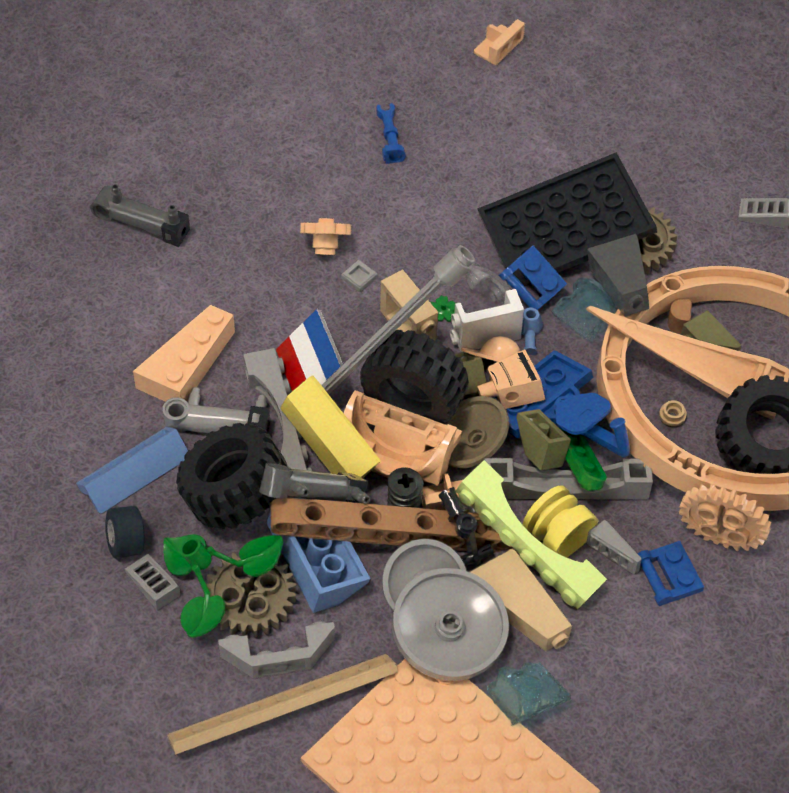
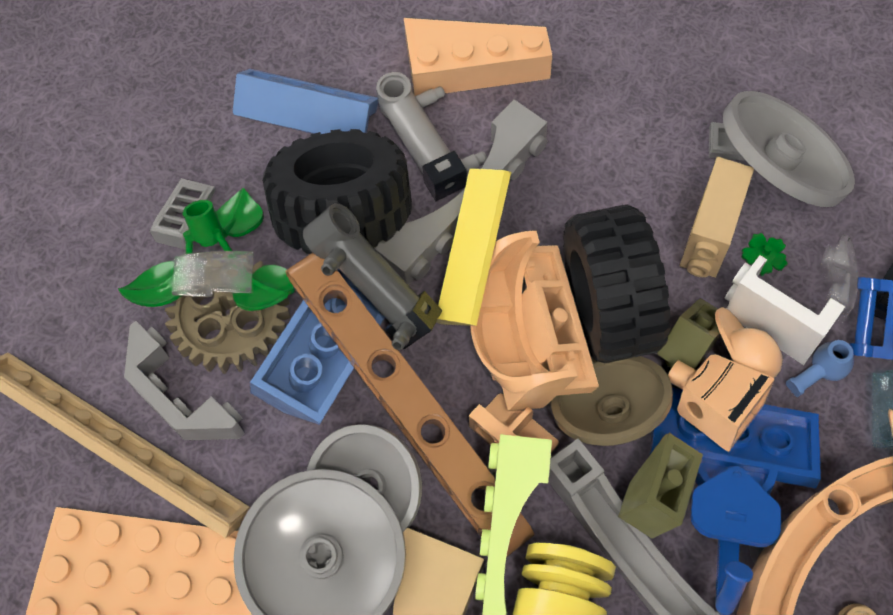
camera: 60 degrees right, 10 degrees up
(124, 531) = (214, 145): black wheel -> none
(229, 572) = (212, 271): none -> clear slope
(313, 351) = (574, 152): flag -> none
(325, 234) = (743, 69): light nougat plant -> none
(397, 248) = (788, 149): none -> light grey dish
(405, 488) = (462, 381): pearl dark grey piece -> none
(465, 527) = (456, 483): black pin -> none
(584, 463) = (668, 566): green plate -> none

